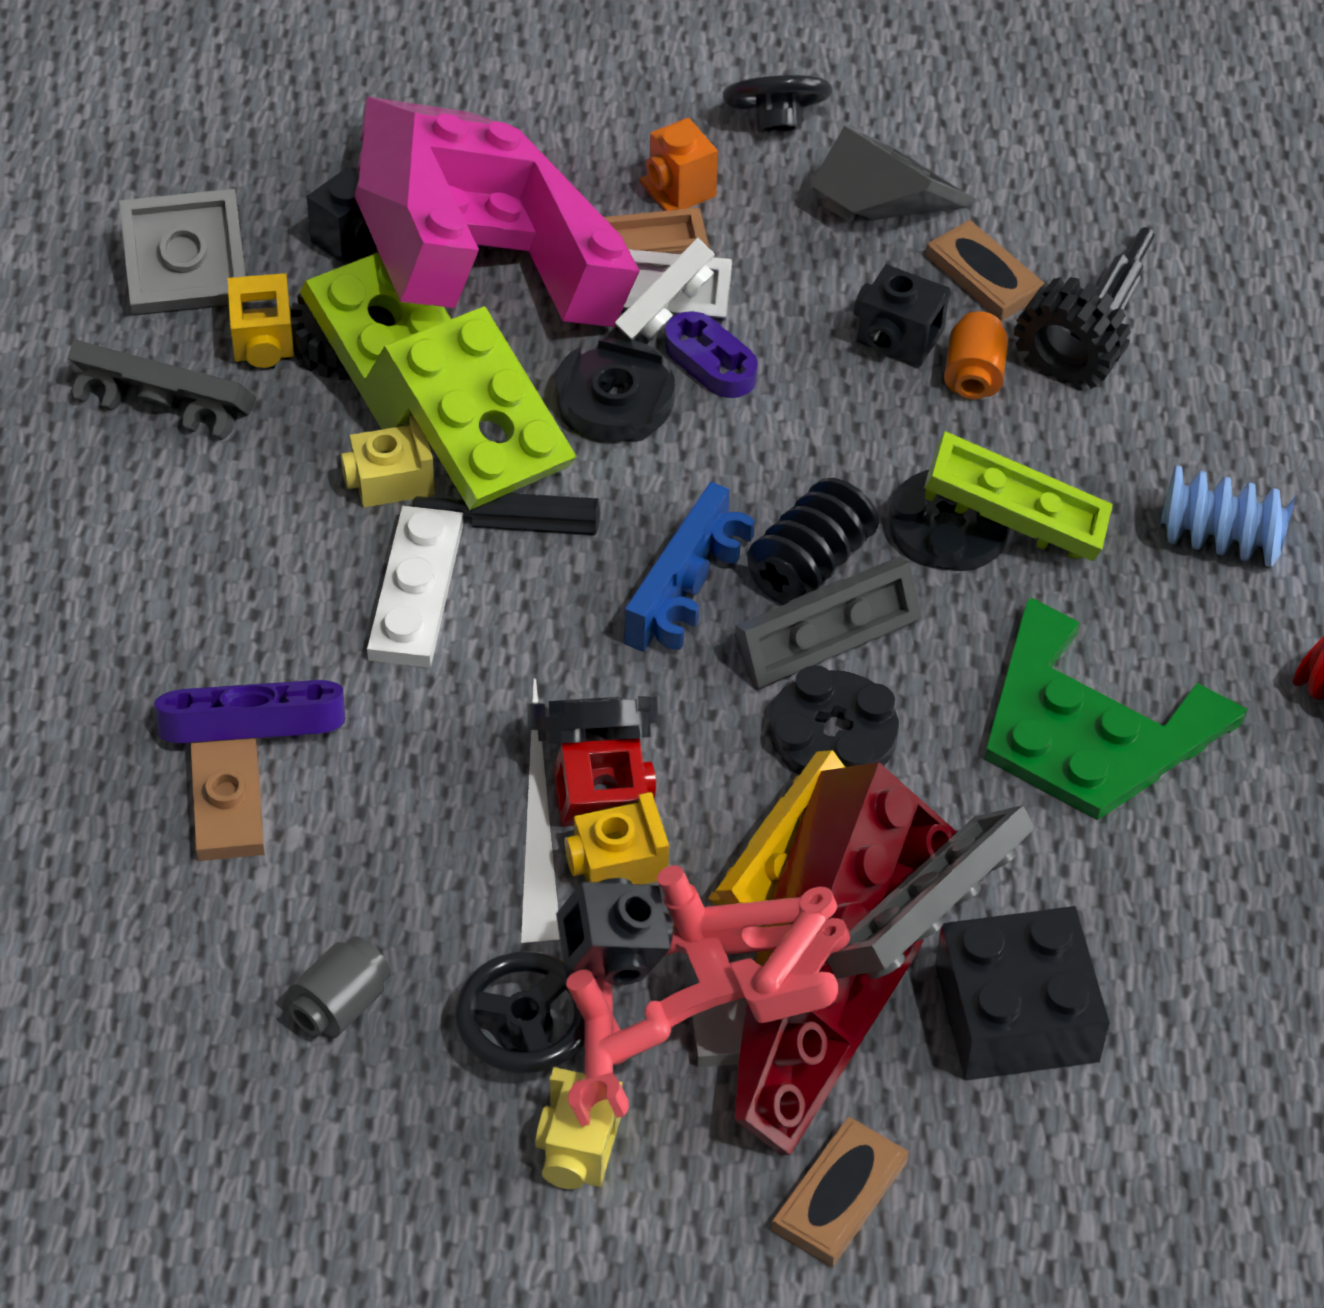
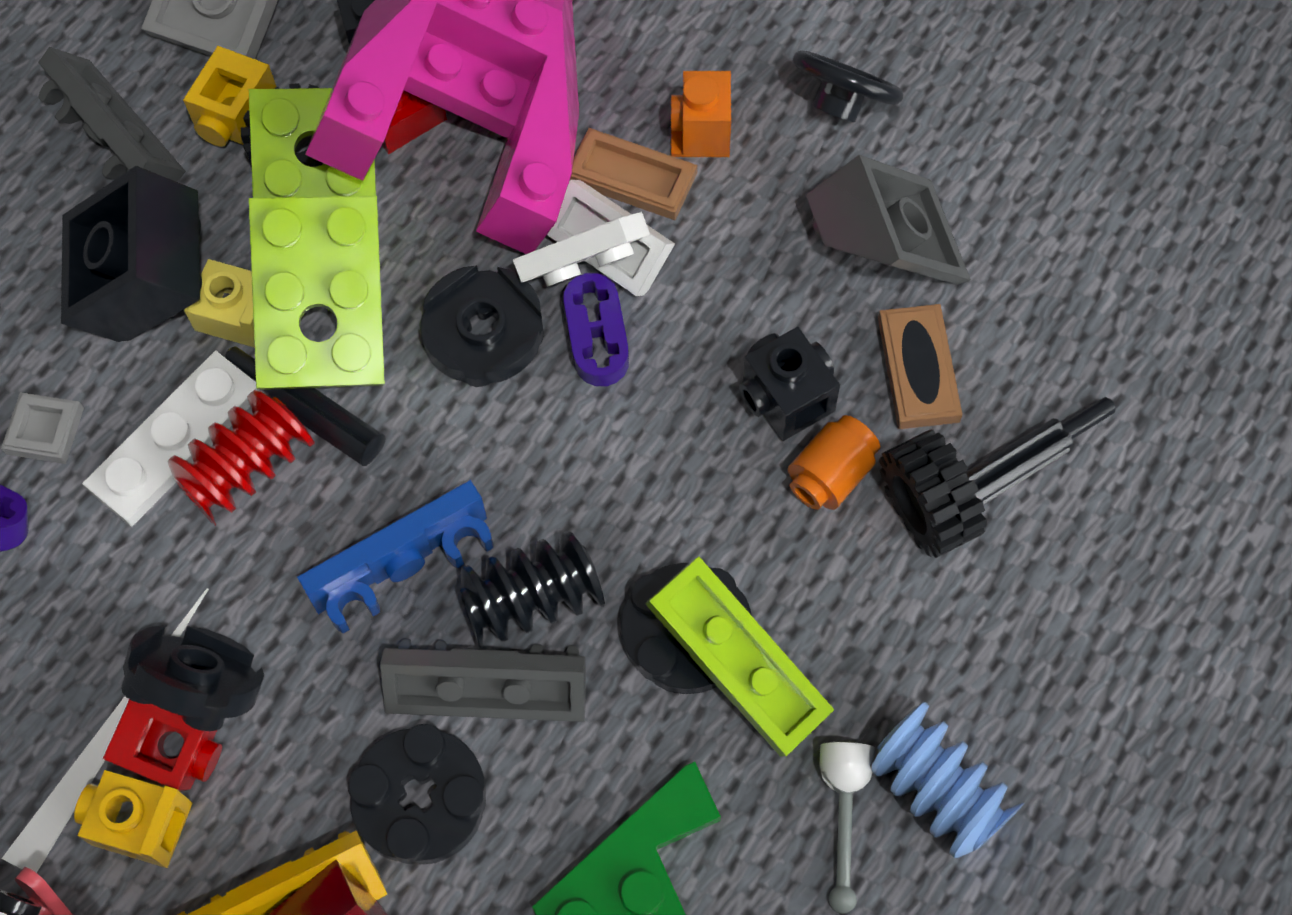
camera: 35 degrees right, 15 degrees up
(287, 454) = (130, 256): none -> black brick
(291, 631) = (42, 428): none -> light grey tile
(492, 562) = (238, 453): none -> red piece
(1145, 550) = (845, 769): none -> hinge

